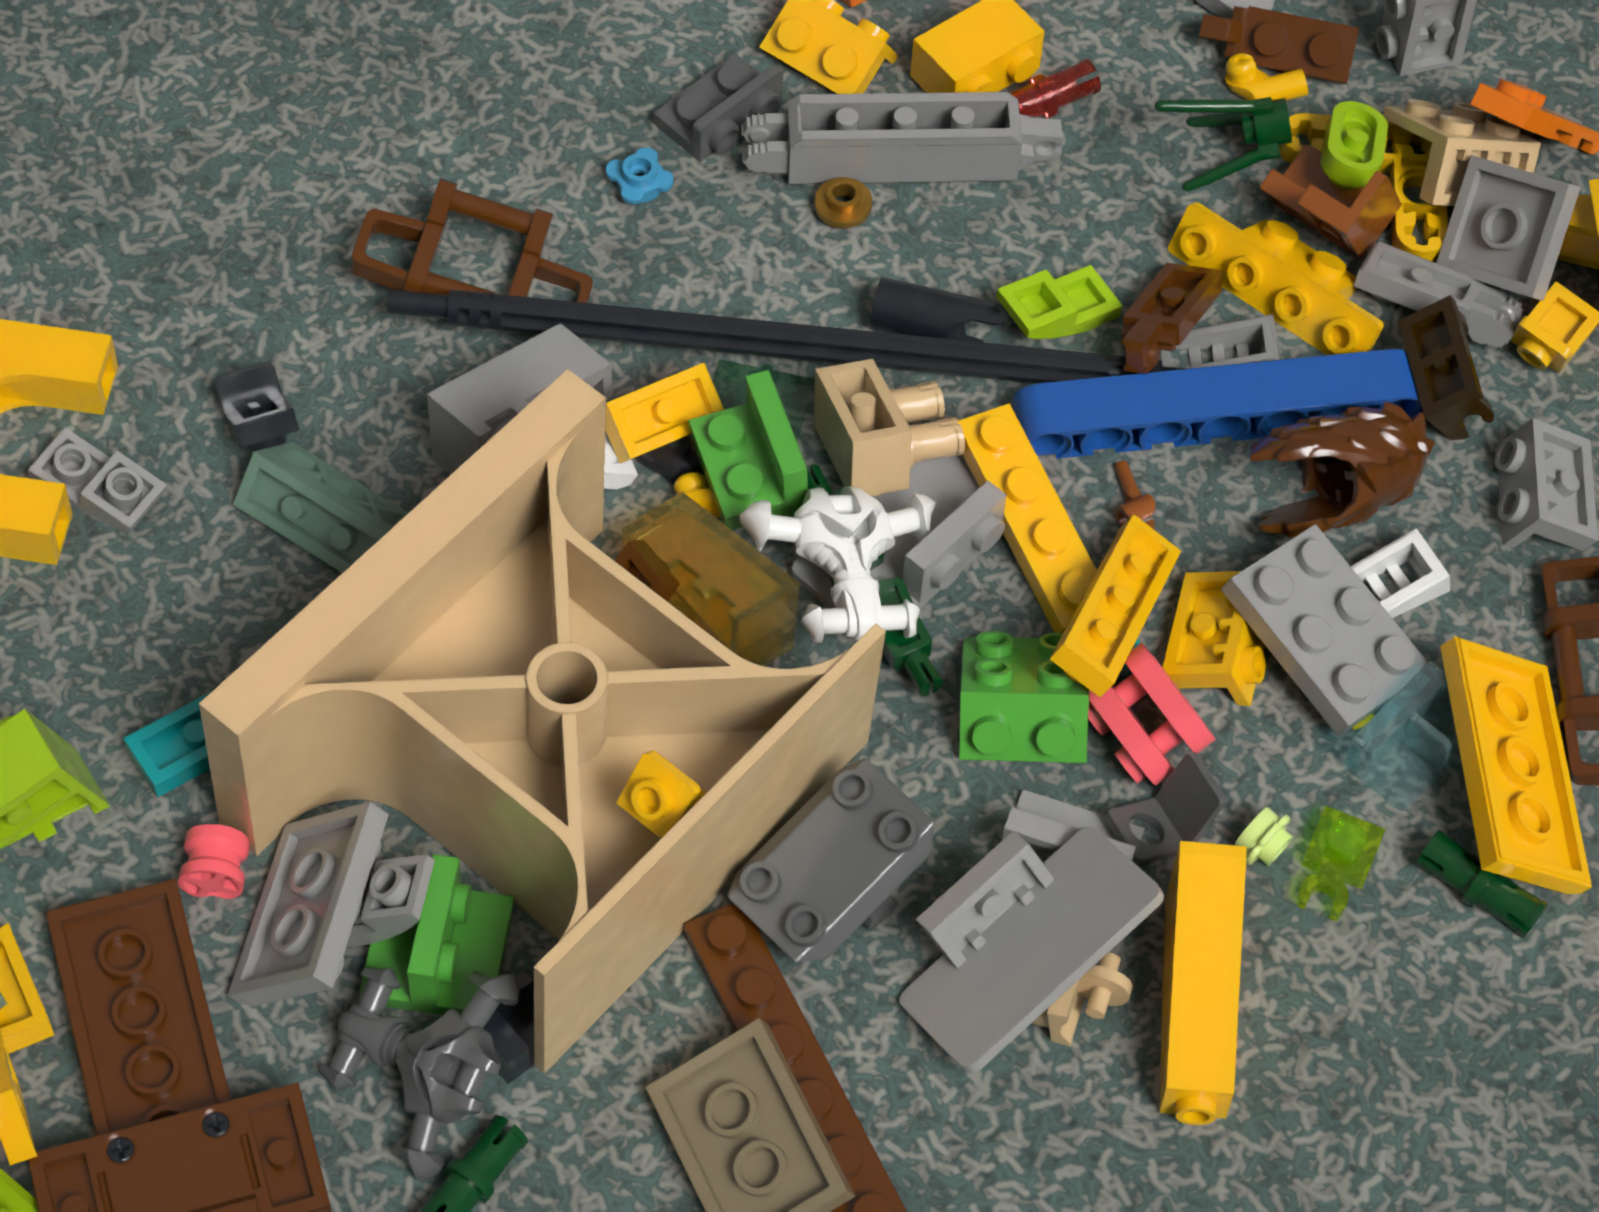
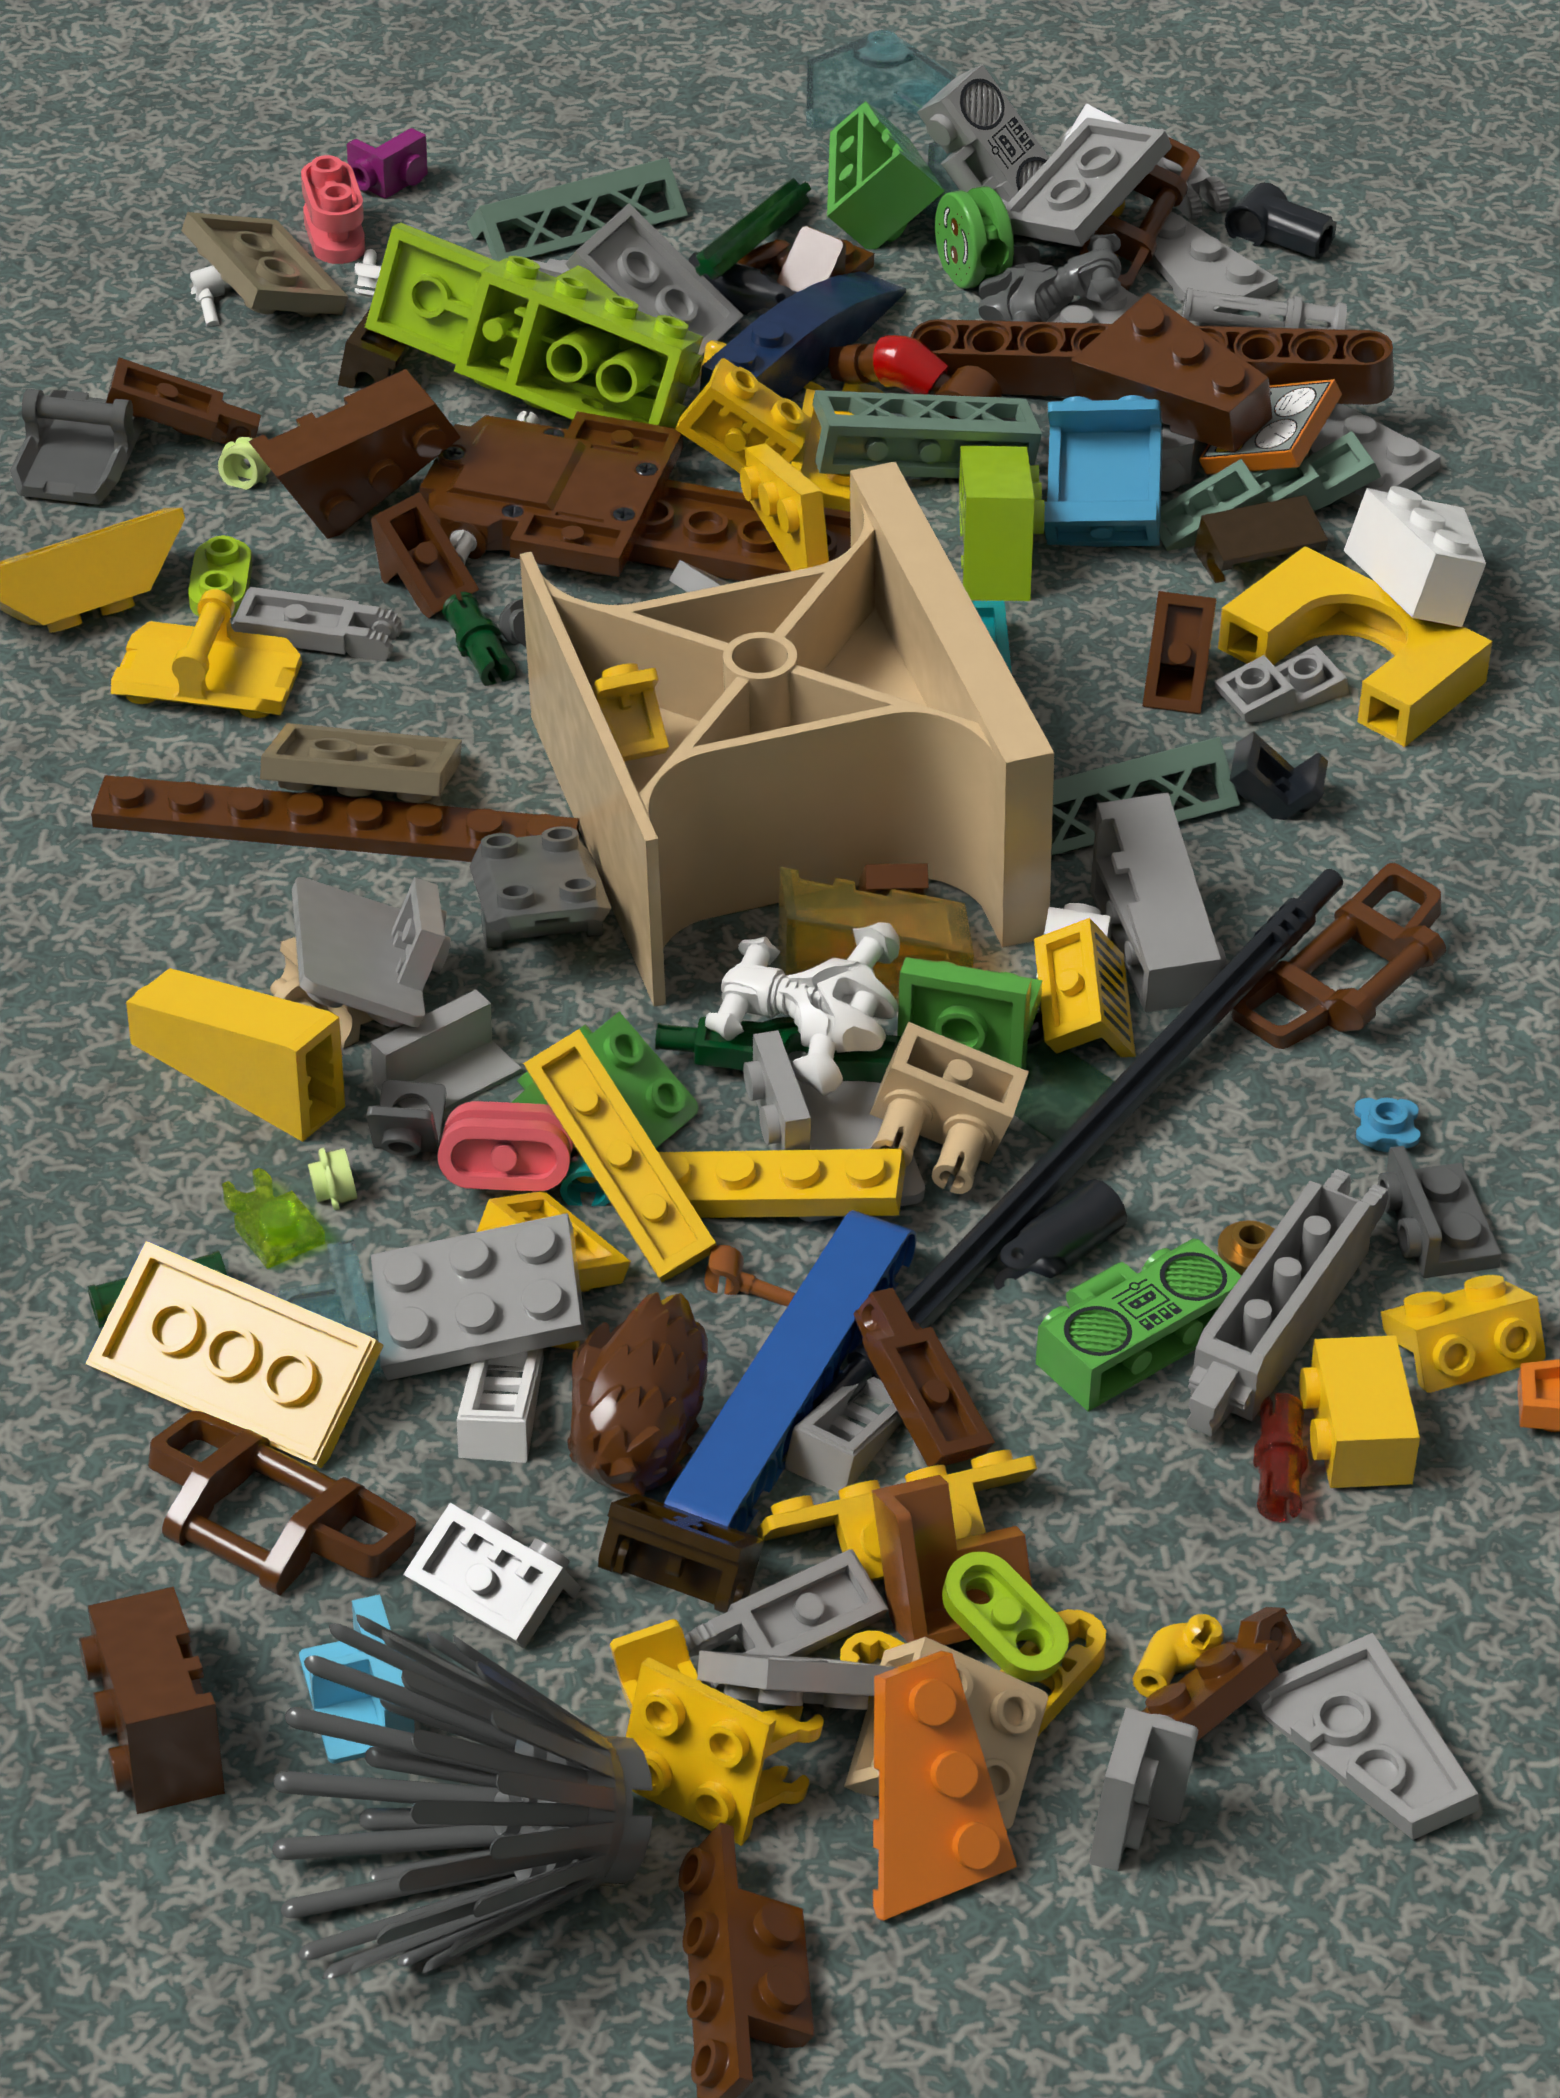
camera: 125 degrees right, 15 degrees down
(122, 558) = (1179, 652): none -> reddish brown slope
(146, 942) = (787, 506): none -> yellow wing
(984, 222) = (1132, 1323): none -> bright green piece
(1061, 305) = (1001, 1324): lime slope -> none
(1263, 123) = (1098, 1579): dark green plant -> none

